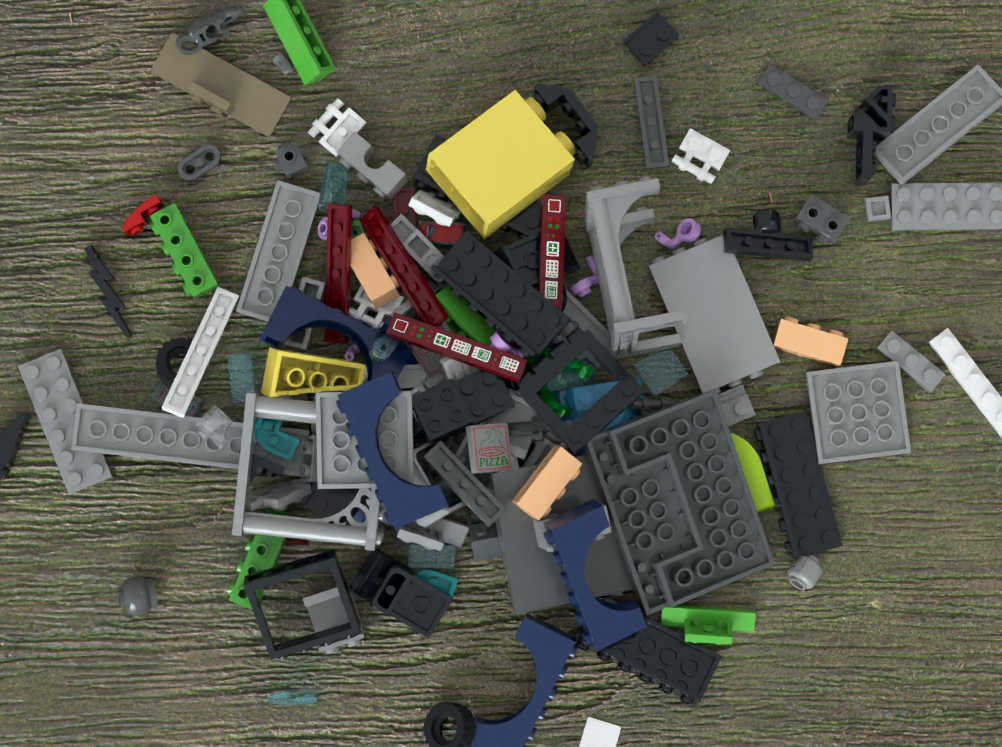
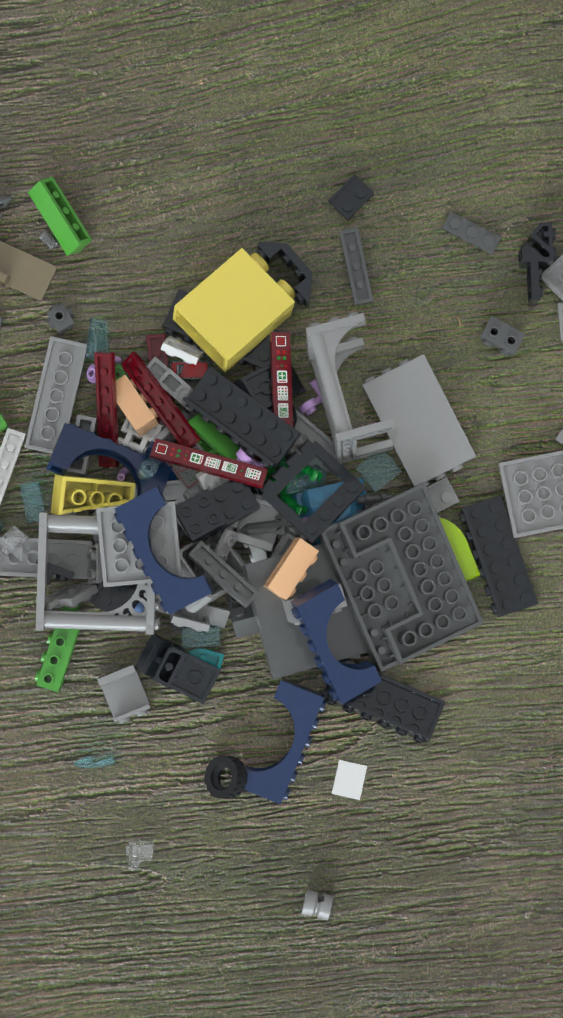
camera: 10 degrees left, 0 degrees up
(274, 440) = (63, 550): teal plate -> none
(293, 542) = (84, 633): clear red tile -> none
(295, 570) = (85, 657): black window -> none
(340, 131) = (100, 293): white plate -> none
(386, 180) = (114, 310): light grey arch -> none
(489, 448) = (241, 543): light grey tile -> none
(687, 231) = (392, 354): lavender plate -> none
(703, 150) = (401, 286): white plate -> none
(708, 623) = (432, 675): bright green bracket -> none
(767, 239) = (458, 356): black plate -> none
(805, 572) = (509, 627): light grey head -> none
(810, 341) = (499, 437): light nougat brick -> none
(877, 208) = (547, 324): light grey tile -> none

